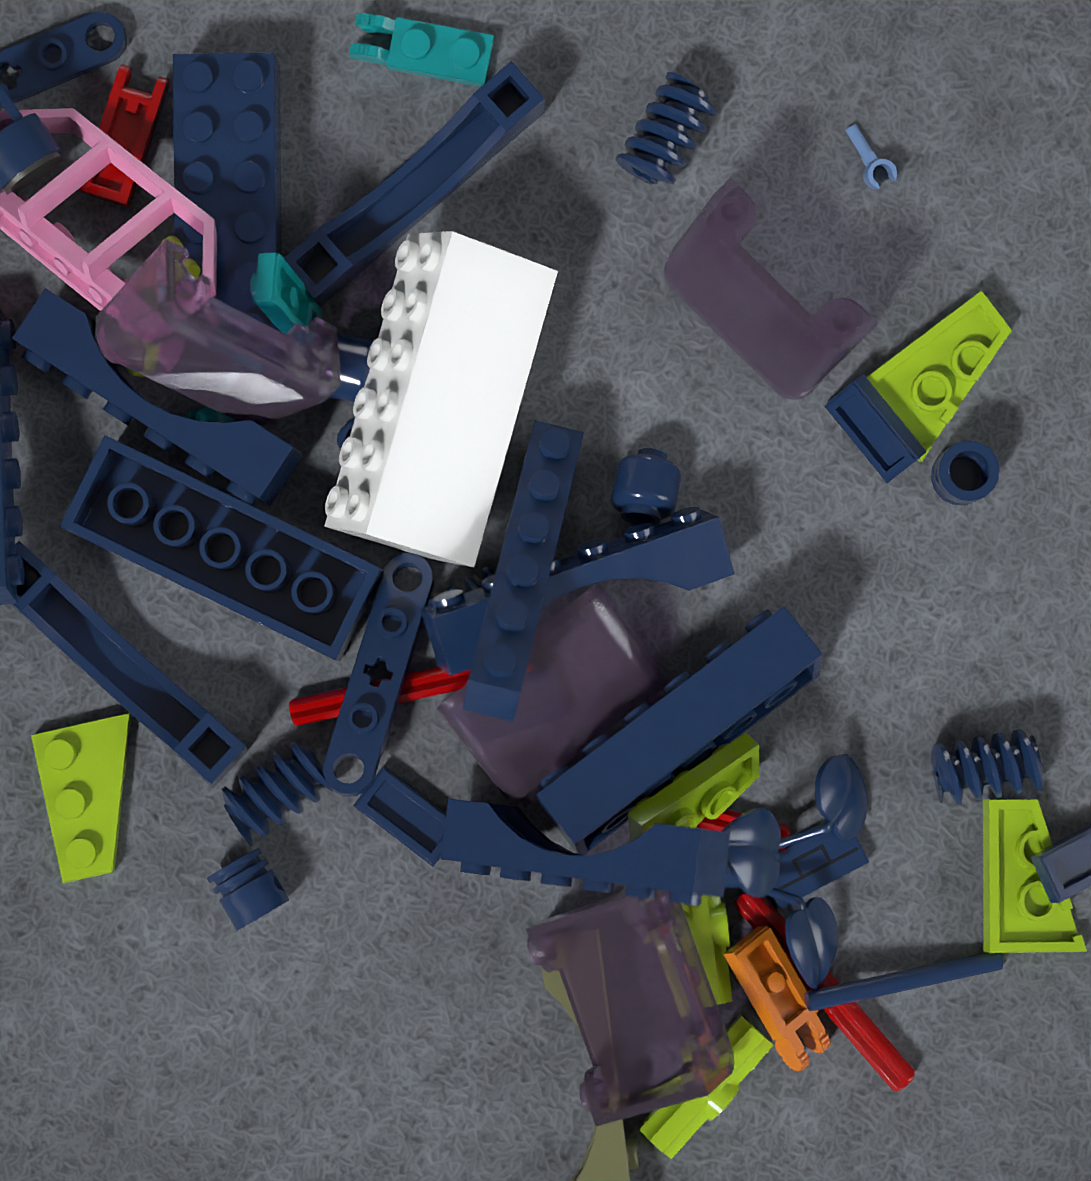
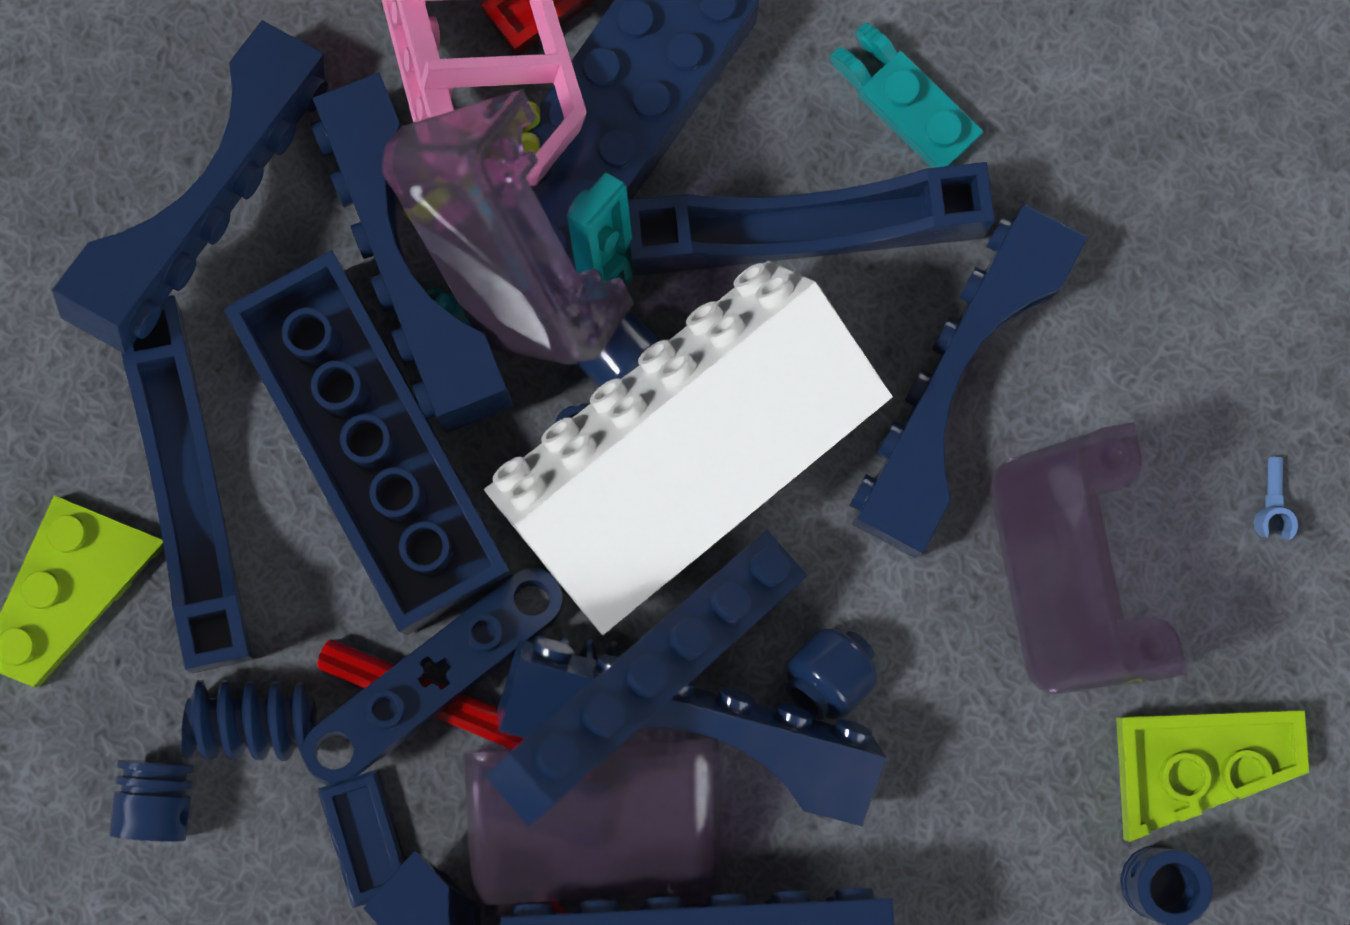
camera: 25 degrees right, 5 degrees down
(613, 322) = (912, 486): none -> dark blue arch
(666, 130) = (1091, 336): dark blue piece -> none
(875, 428) = (1103, 776): dark blue tile -> none

